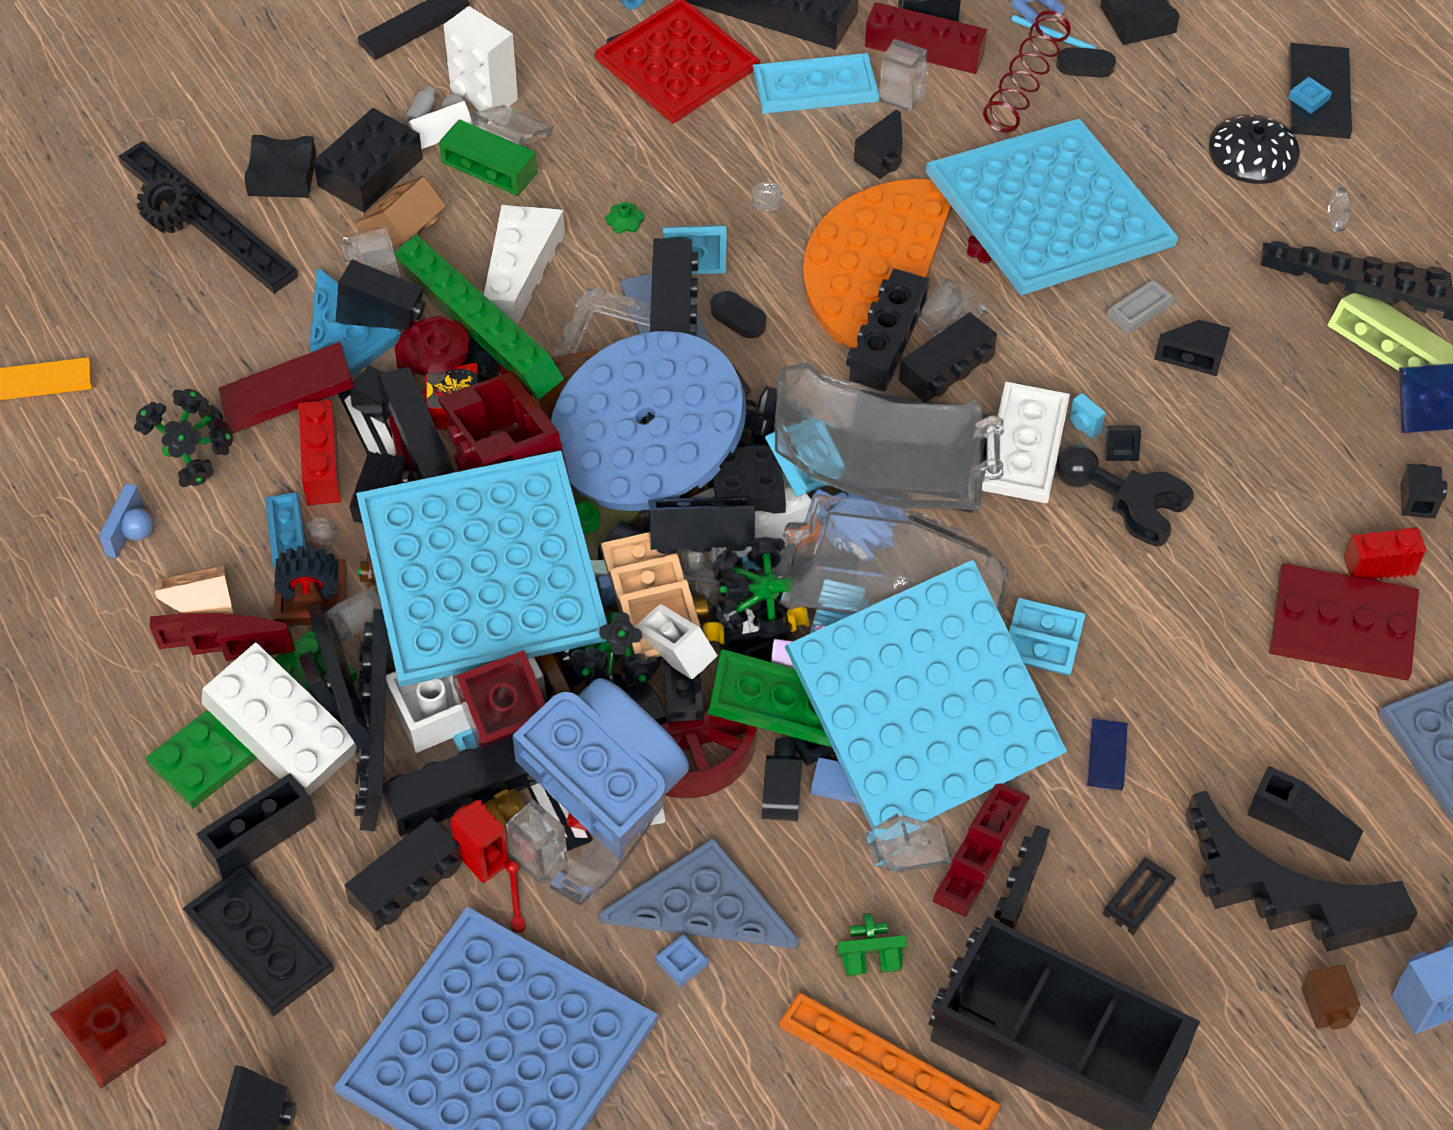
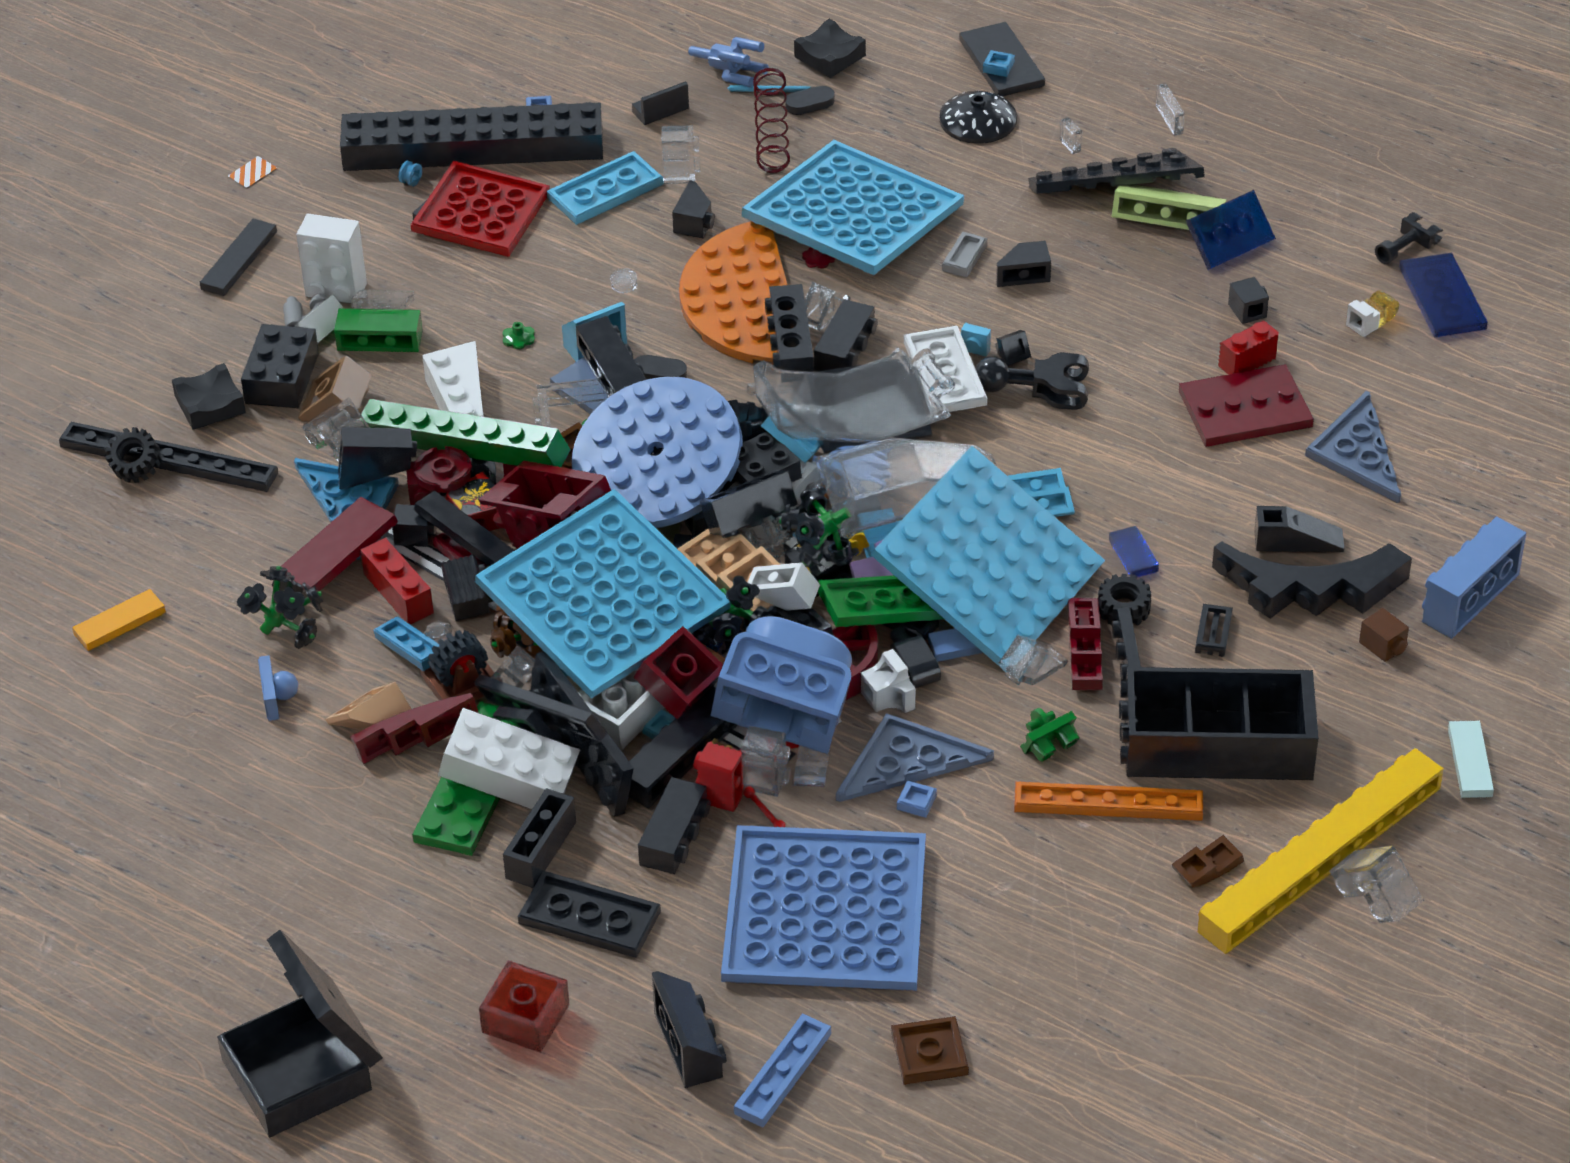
camera: 25 degrees left, 10 degrees down
(733, 804) = (888, 684): none -> white brick
(946, 41) = (644, 124): dark red brick -> none
(1065, 796) = (1124, 588): none -> black tyre

